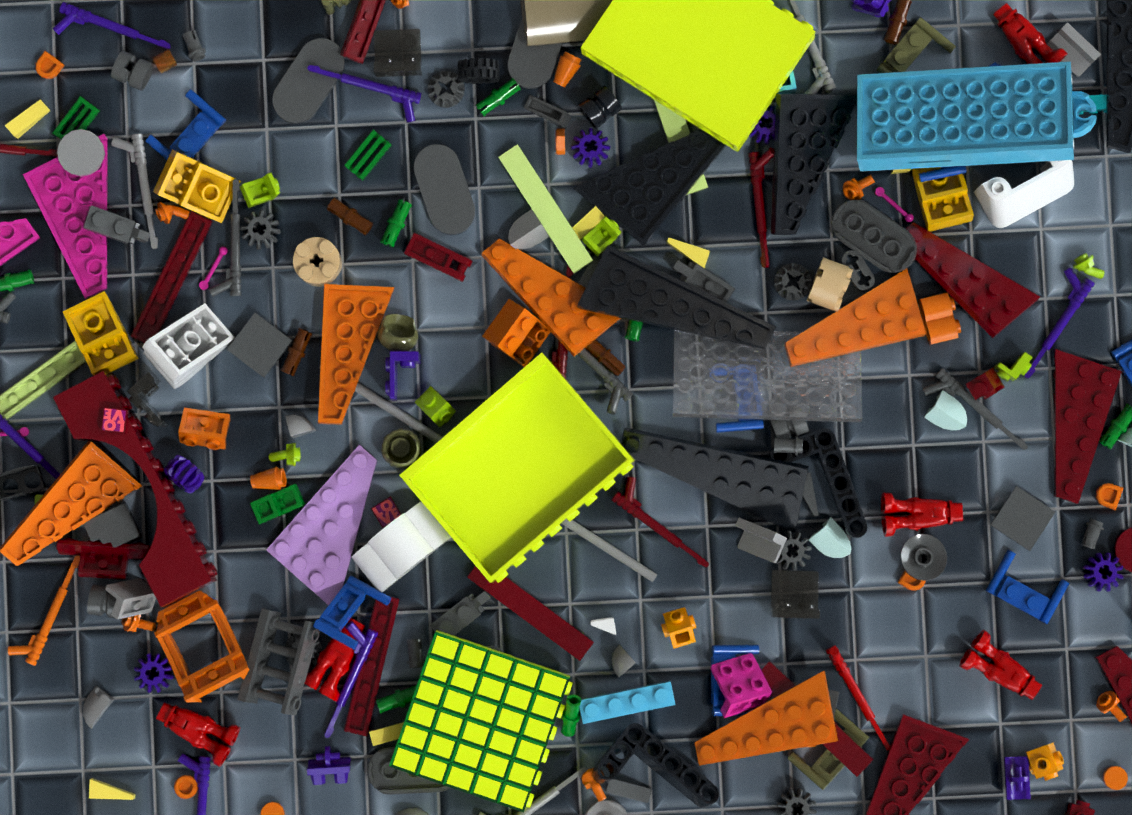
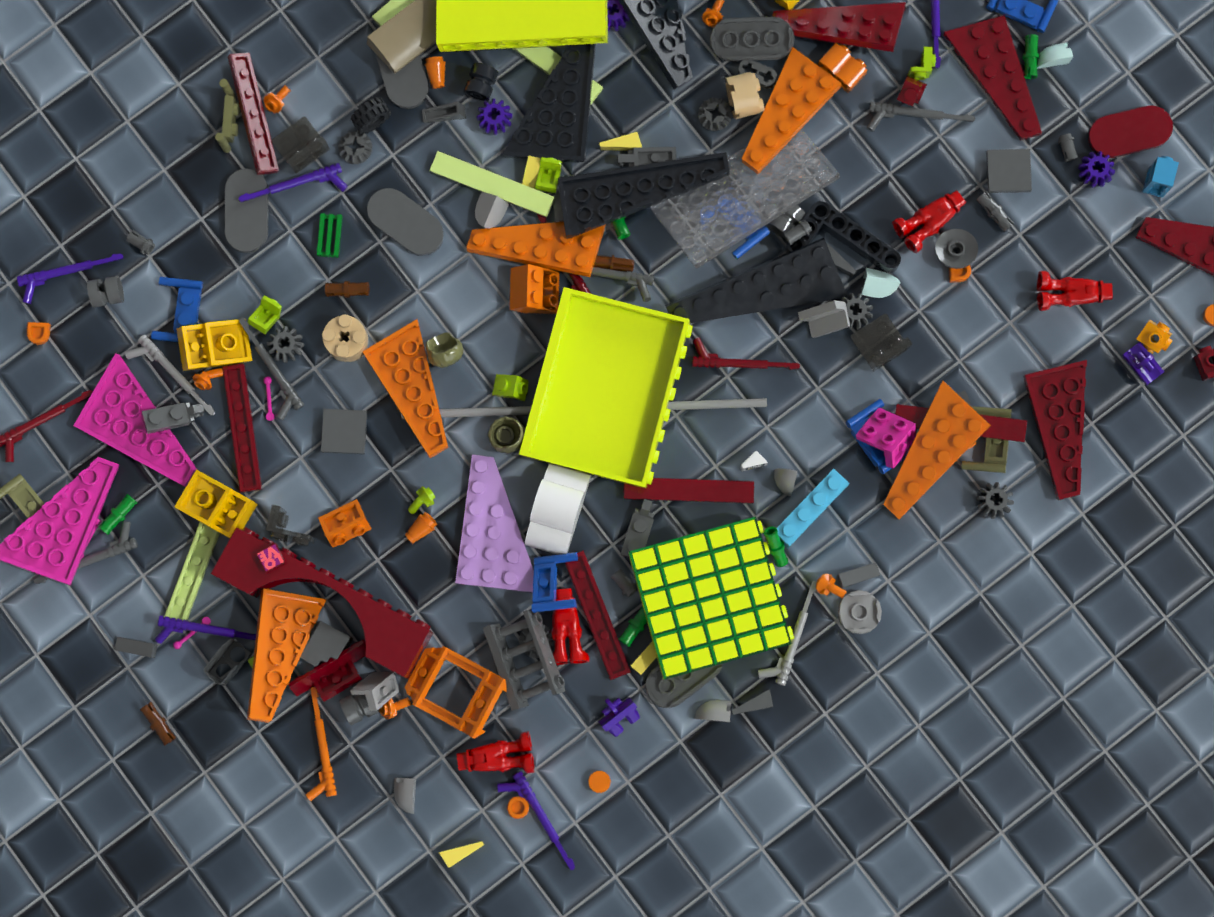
camera: 30 degrees left, 5 degrees down
(27, 119) = (48, 383): light yellow piece -> none
(57, 132) = (96, 360): green tile -> none
(81, 152) = (107, 378): light grey tile -> none
(149, 665) = (439, 739): dark purple gear -> none
(164, 61) = (125, 269): clear orange hose -> none
(184, 474) = (352, 566): dark purple gear -> none
(187, 345) = (288, 468): white brick -> none
(277, 504) = (440, 542): green slope -> none
(296, 352) = (376, 417): reddish brown pin -> none
(299, 425) = (416, 471): light grey brick -> none
(363, 648) = (583, 608): dark purple piece -> none
(386, 511) = (527, 491): tile -> none
(396, 223) = (385, 270): green pin -> none
(406, 359) = (464, 365): dark purple bracket -> none
(437, 257) = (435, 274): dark red plate -> none
(498, 97) = (398, 126): green pin -> none
(560, 141) = (468, 127): orange tile -> none
(657, 763) = (867, 539): black beam -> none
(679, 627) = (811, 425): light orange brick -> none
(757, 173) = (632, 53): dark red piece -> none
(844, 672) = (943, 367): red piece -> none
(880, 193) = (733, 6): dark pink hinge -> none
(947, 413) = (898, 132): light aqua brick -> none
(983, 547) = (995, 211): none -> dark grey pin
(1023, 596) = (1049, 228): blue plate -> none
(1108, 495) = (1060, 112): orange tile -> none
(1108, 702) = (1169, 262): orange plate -> none

